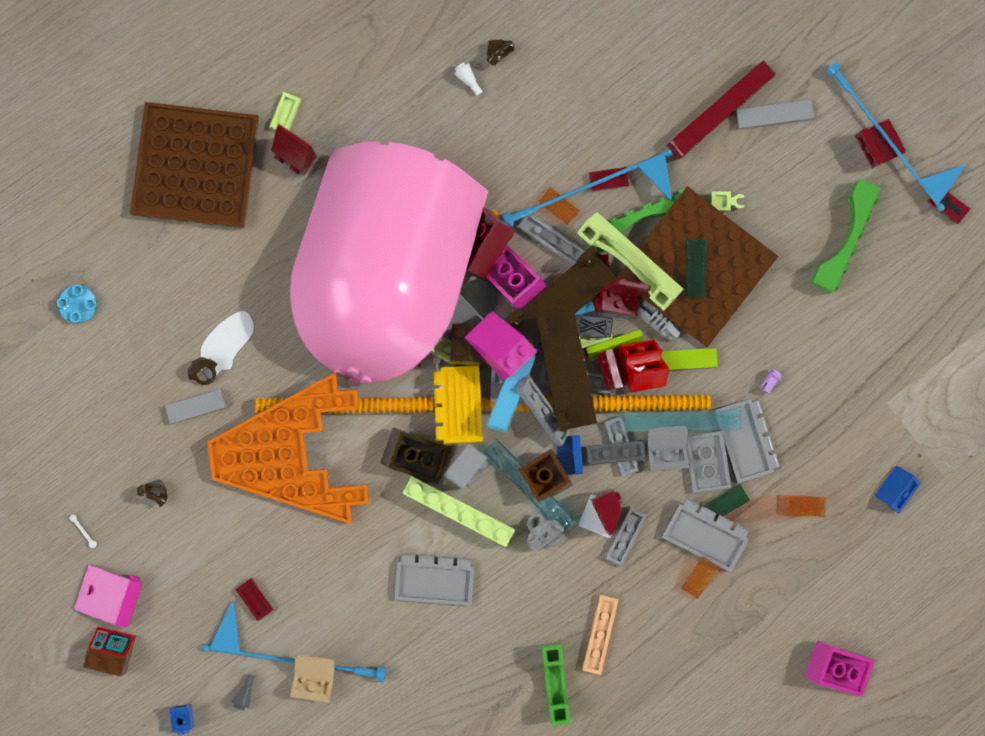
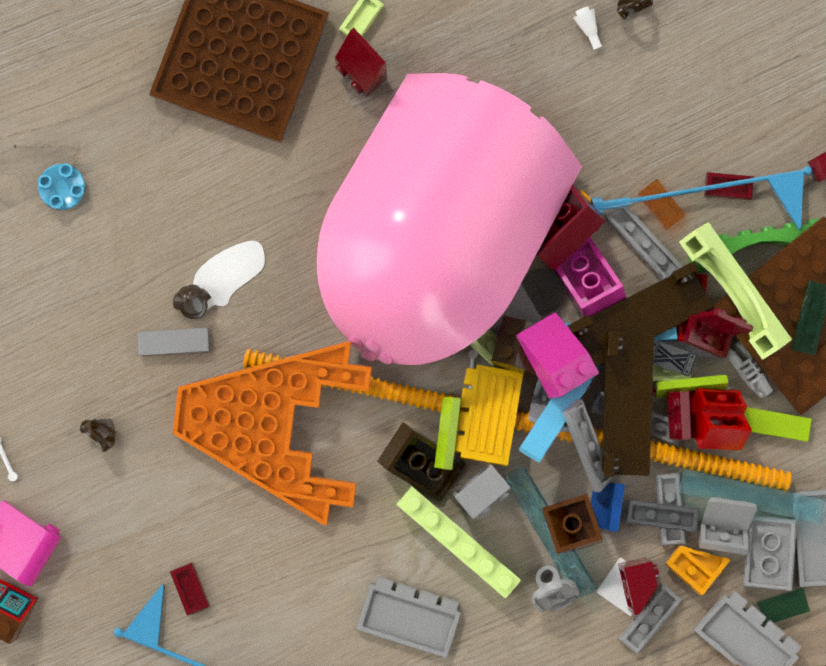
camera: 15 degrees right, 0 degrees up
(429, 427) = (447, 433): none -> lime tile
(652, 487) = (696, 567): none -> light orange wing

